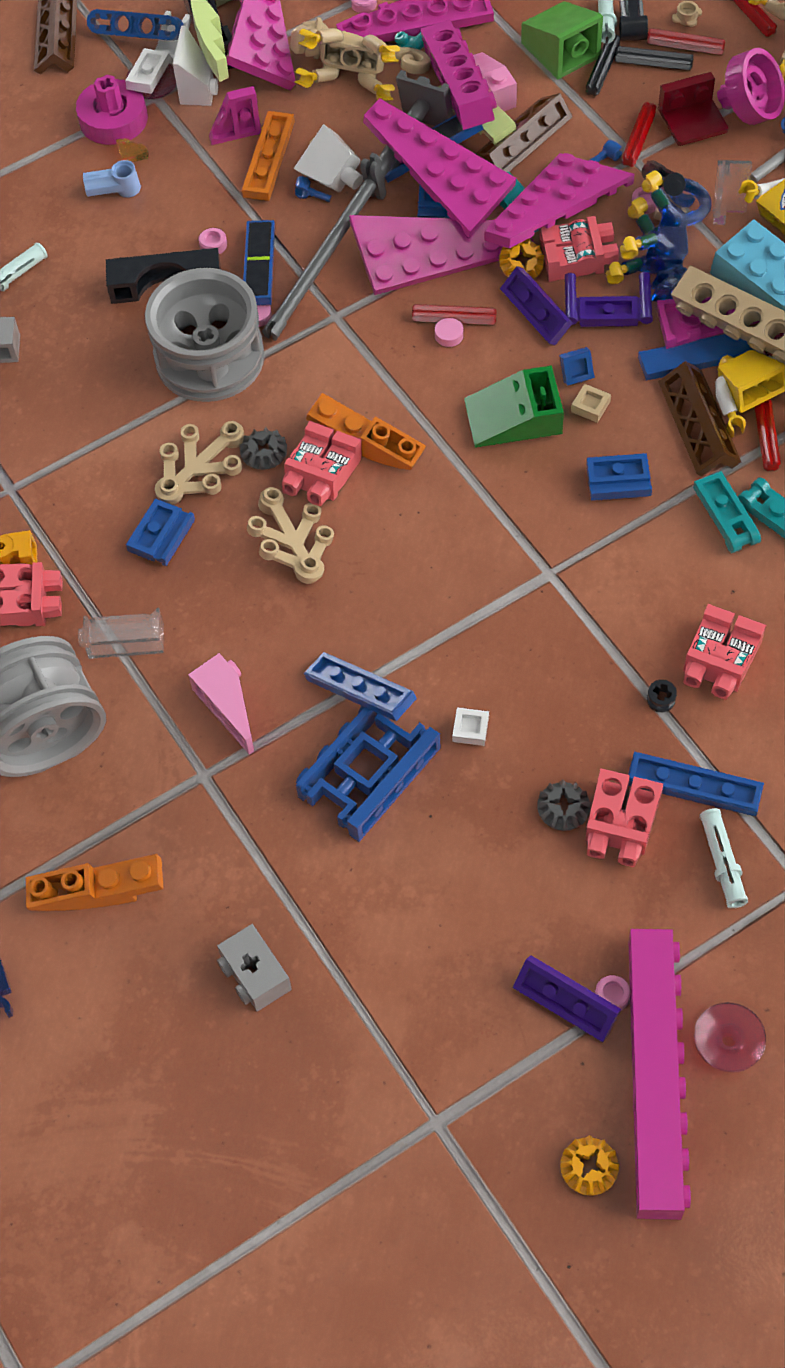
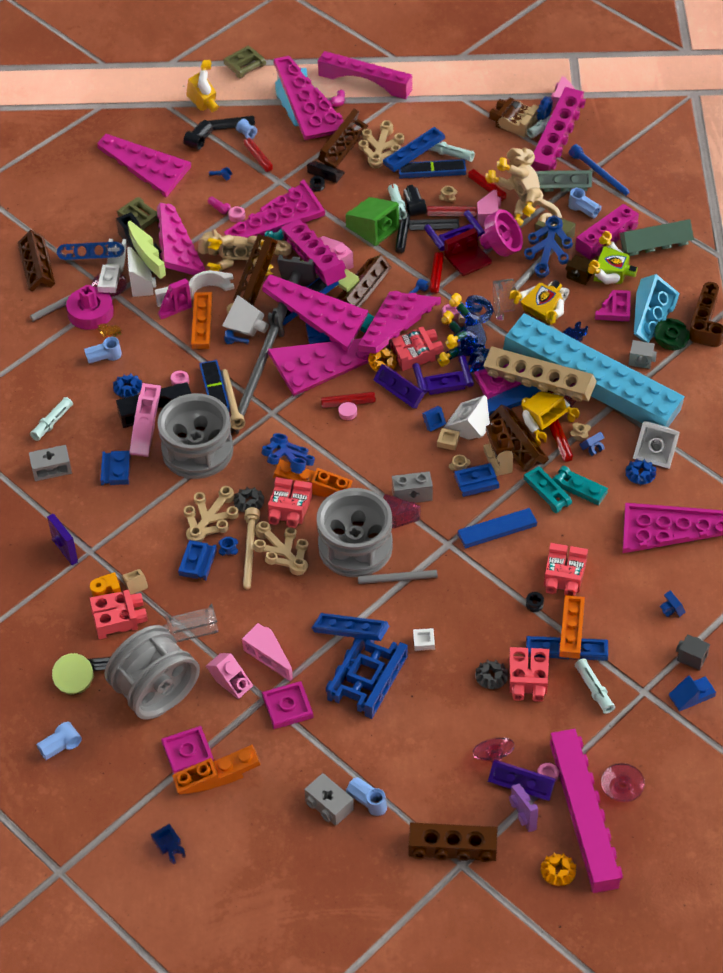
camera: 15 degrees left, 10 degrees down
(54, 105) = (49, 309): none -> light grey bar
(60, 549) = (135, 581): none -> tan slope
(63, 838) = (186, 749): none -> dark pink tile
(81, 364) = (115, 467): none -> blue plate
(130, 247) = (127, 391): none -> blue gear
(143, 278) = (145, 420): none -> bright pink slope
(157, 728) = (229, 674): none -> bright pink slope
(209, 511) = (228, 546): none -> blue plate
(234, 794) = (287, 705): none -> dark pink tile
(260, 476) = (251, 516): none -> tan piece
(275, 318) = (237, 420): none -> tan piece
(284, 93) = (200, 280): none -> white piece
(315, 973) = (367, 796): none -> light blue piece
(334, 365) = (291, 452): none -> blue plant
(367, 87) = (258, 271): none -> reddish brown fence
(381, 1058) = (461, 834): none -> reddish brown brick
(410, 567) = (353, 551): none -> light grey wheel
(453, 613) = (397, 576): none -> light grey bar
(480, 508) = (402, 511): none -> clear pink slope
(514, 473) = (413, 487): none -> light grey brick
(516, 408) = (403, 449): green slope -> none
(534, 935) = (493, 749): none -> clear pink dish
(559, 1063) = (526, 813): none -> medium lavender wing
(598, 439) = (459, 462): none -> tan plate
(632, 376) = (470, 418): none -> white slope
(632, 561) = (497, 528): none -> blue tile
(653, 83) = (439, 240): none -> dark purple plate
(664, 432) = (499, 448): none -> hips
(673, 182) = (468, 298): black piece -> none
(709, 752) = (572, 627): none -> orange plate
(742, 39) = (487, 206): none -> bright pink slope

